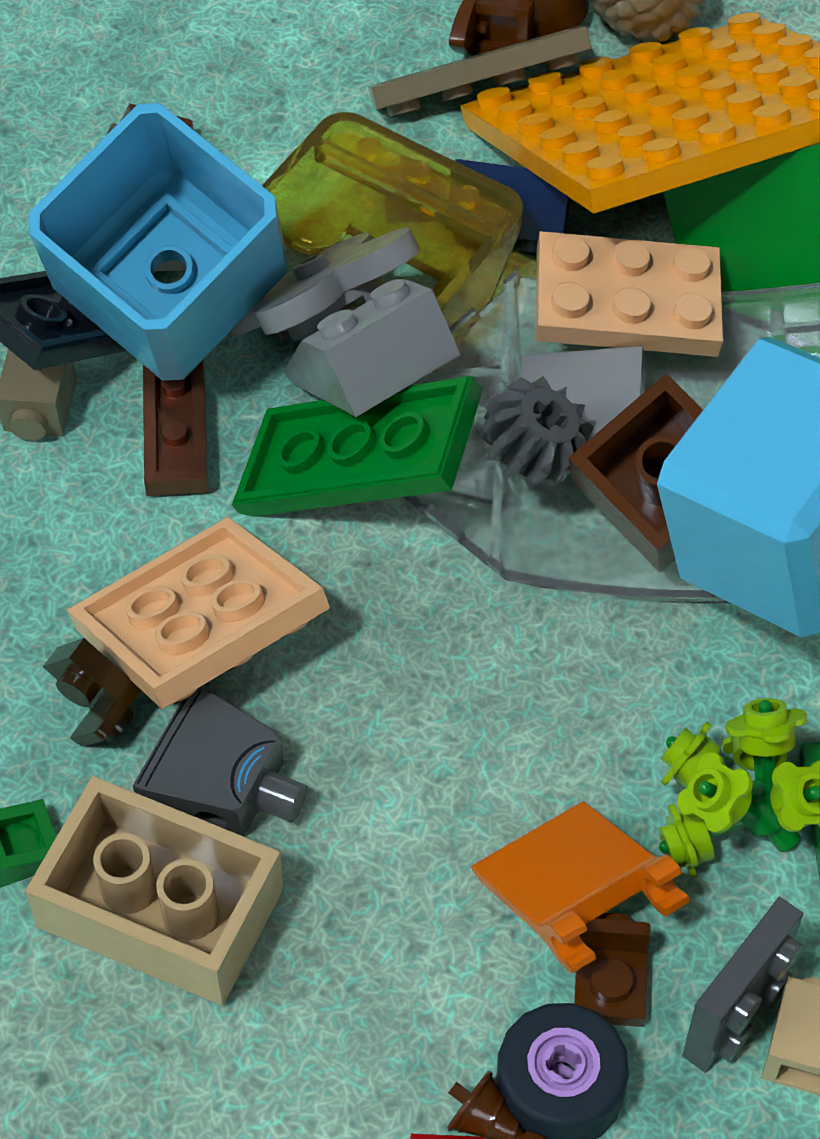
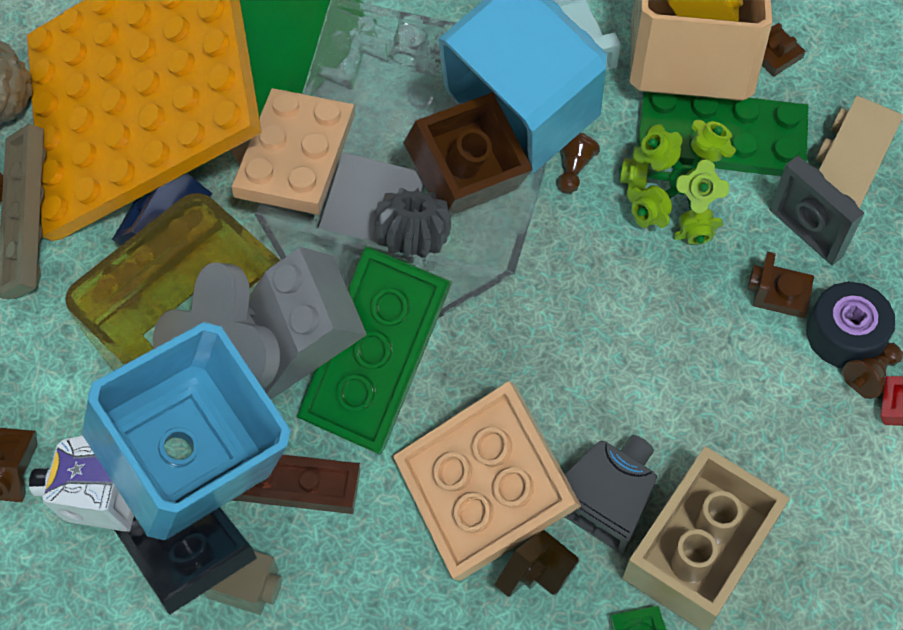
camera: 80 degrees left, 5 degrees up
(573, 874) = (723, 289): orange flag -> none
(769, 664) = (576, 157): none -> reddish brown piece

